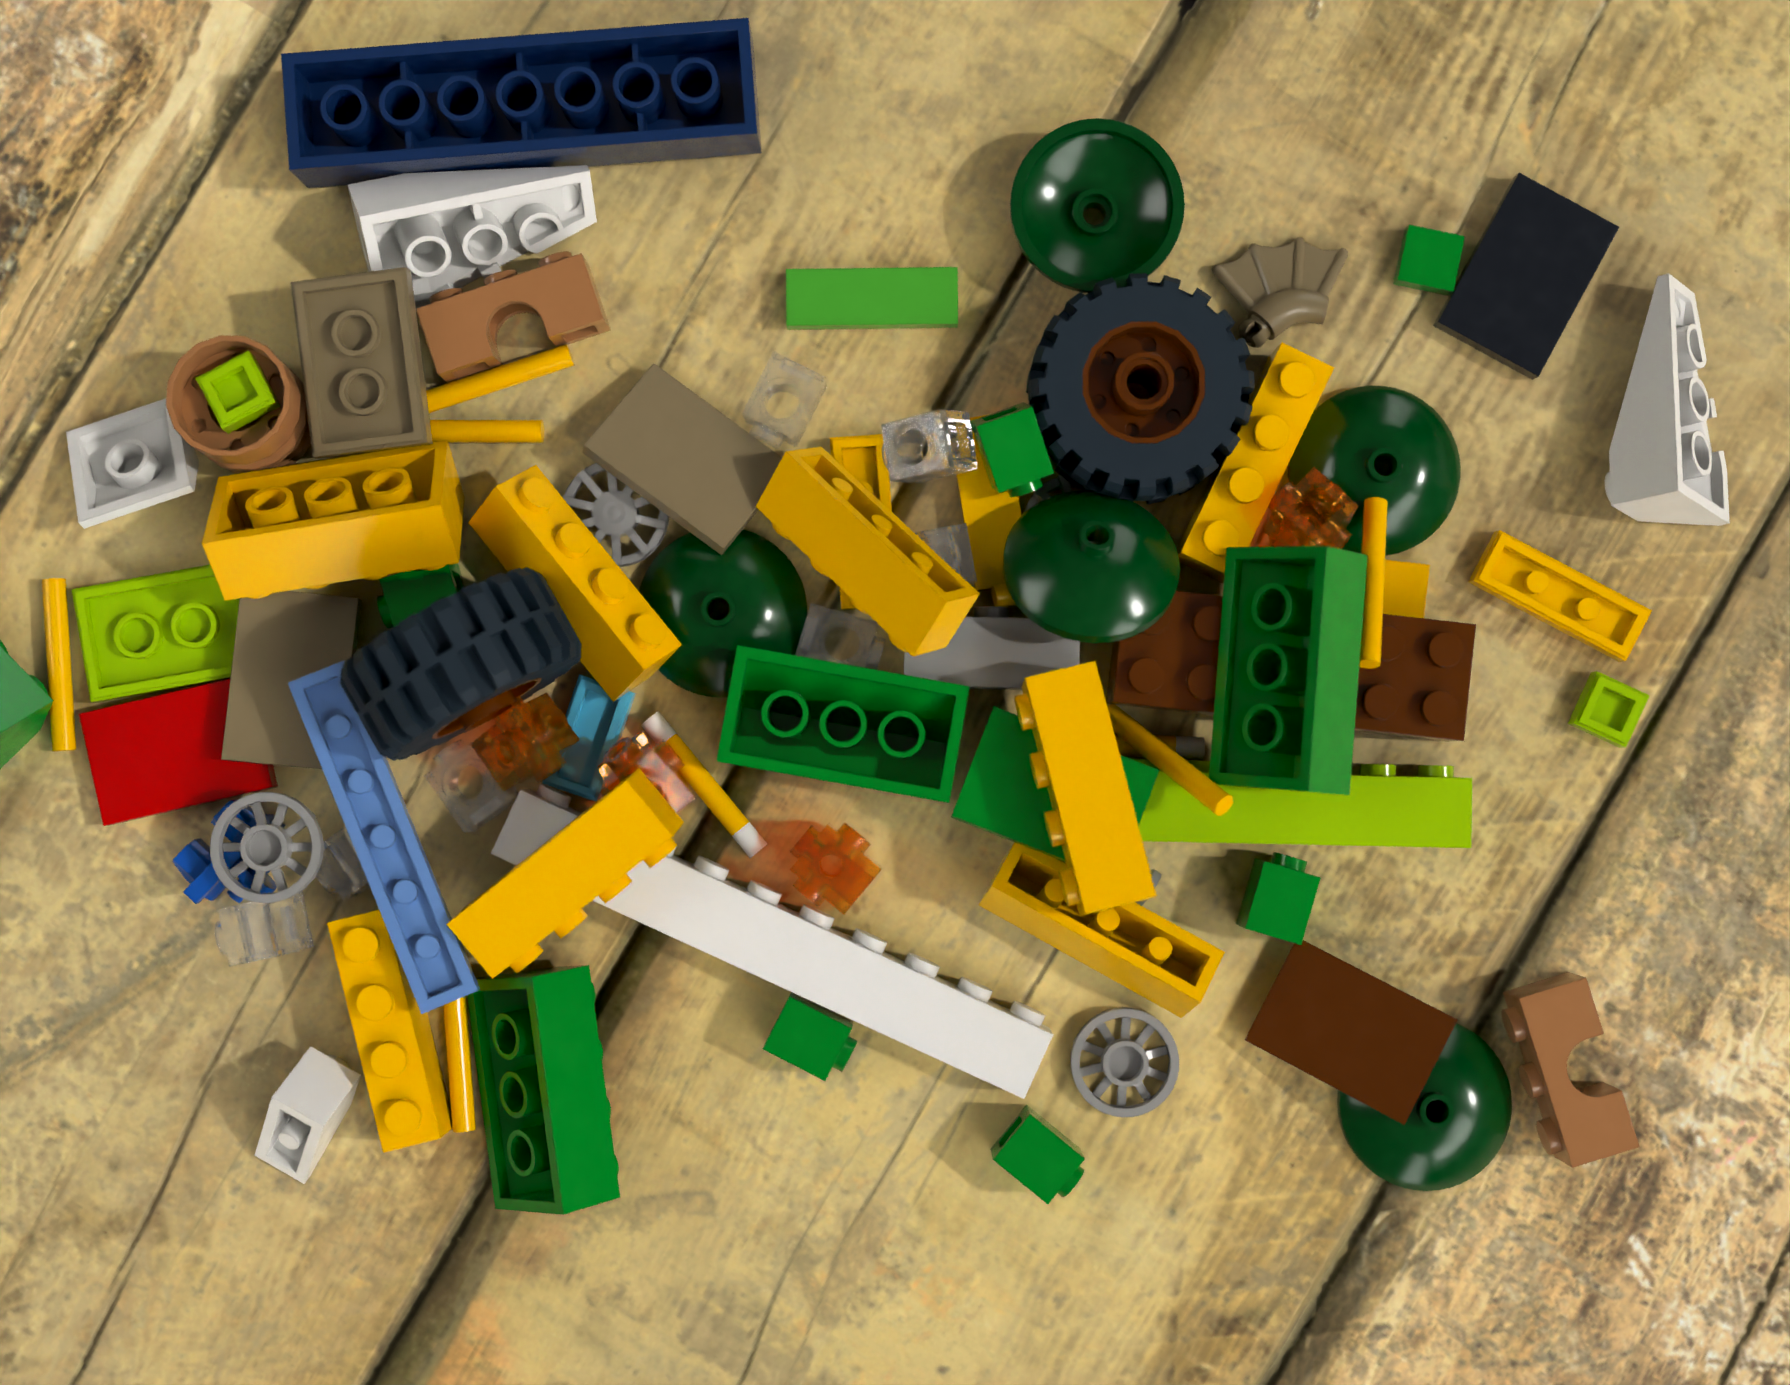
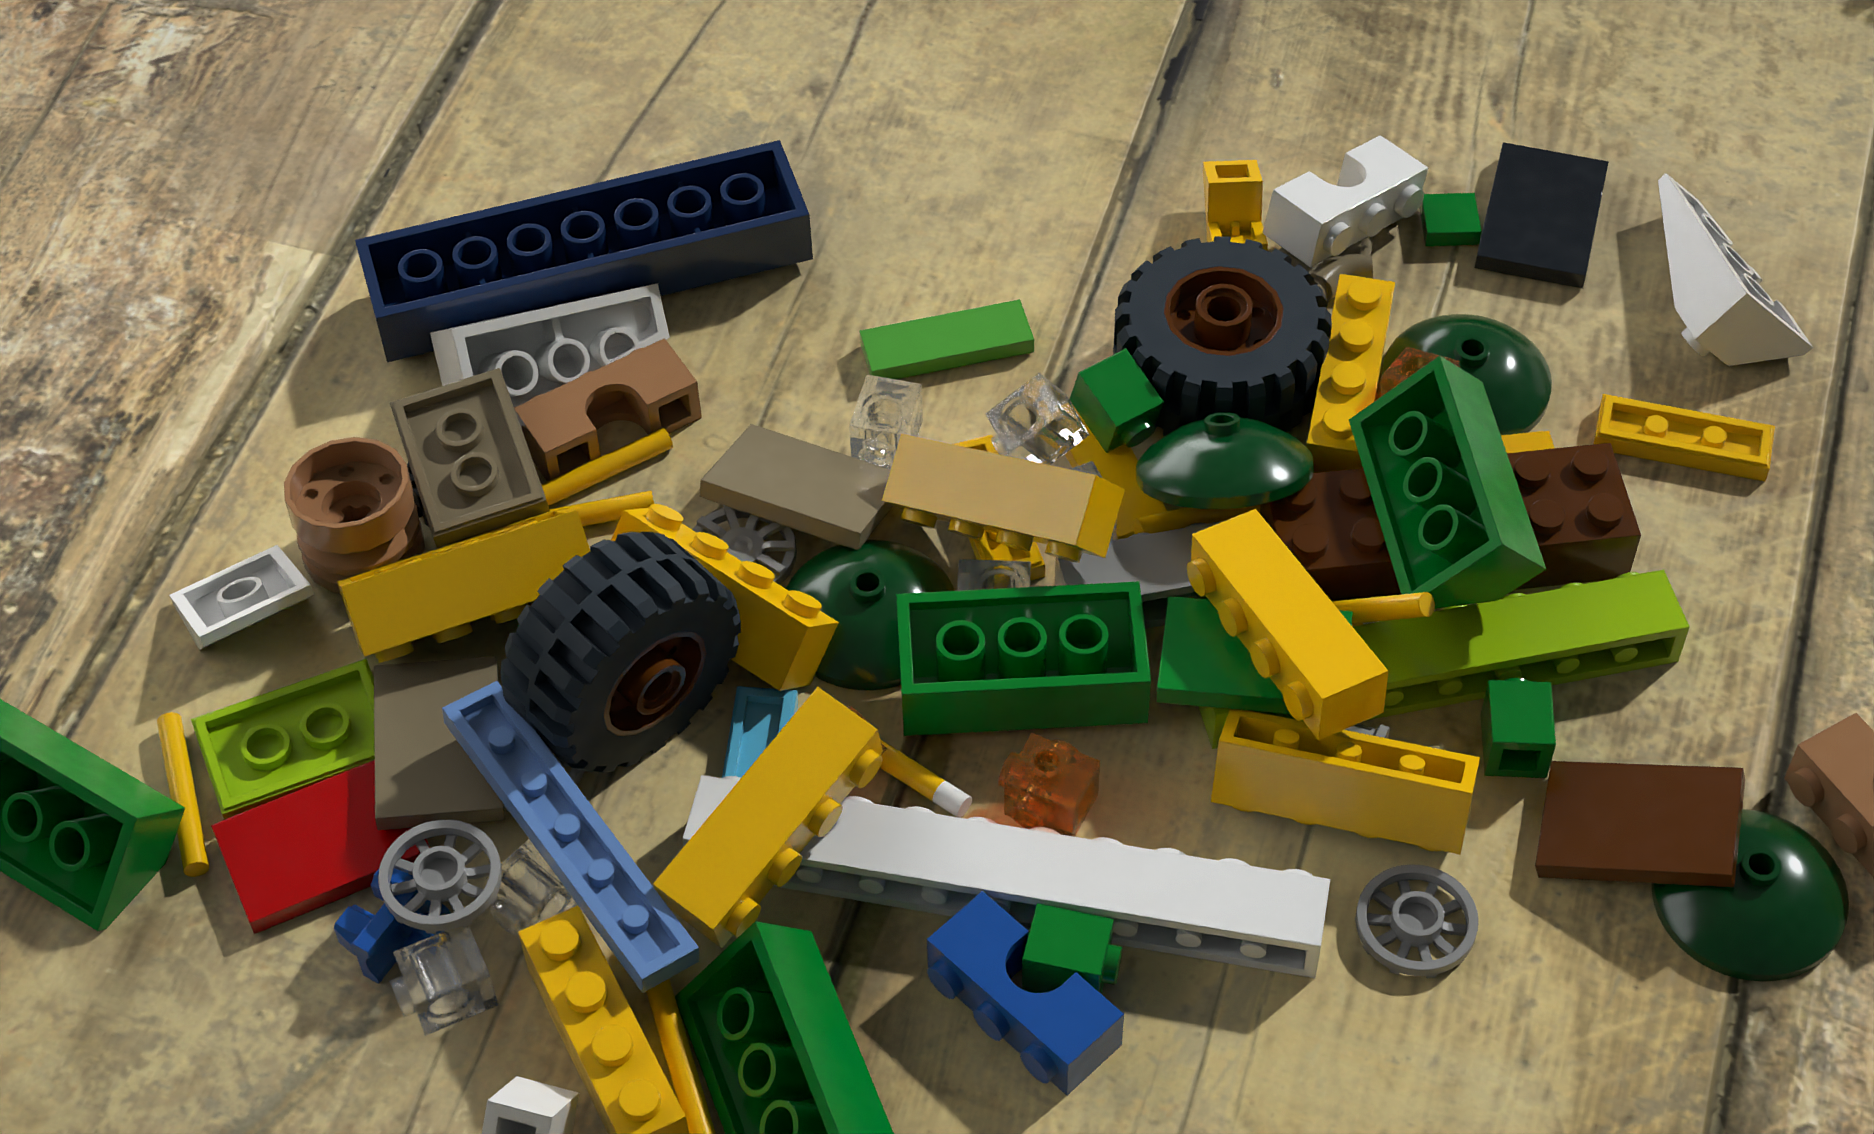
camera: 10 degrees left, 35 degrees down
(238, 392) = (352, 488): lime tile -> none
(467, 812) = (653, 821): clear brick -> none
(535, 734) = (698, 731): clear orange brick -> none
(781, 1109) = (1056, 1032): none -> blue arch
(1039, 1156) = (1356, 1017): green brick -> none
(1101, 168) = (1127, 213): dark green dish -> none
(1212, 193) = (1234, 201): none -> yellow slope
(1285, 252) = (1323, 219): none -> white arch
(1375, 547) = (1517, 458): yellow bar -> none
(1608, 709) = (1772, 515): lime tile -> none

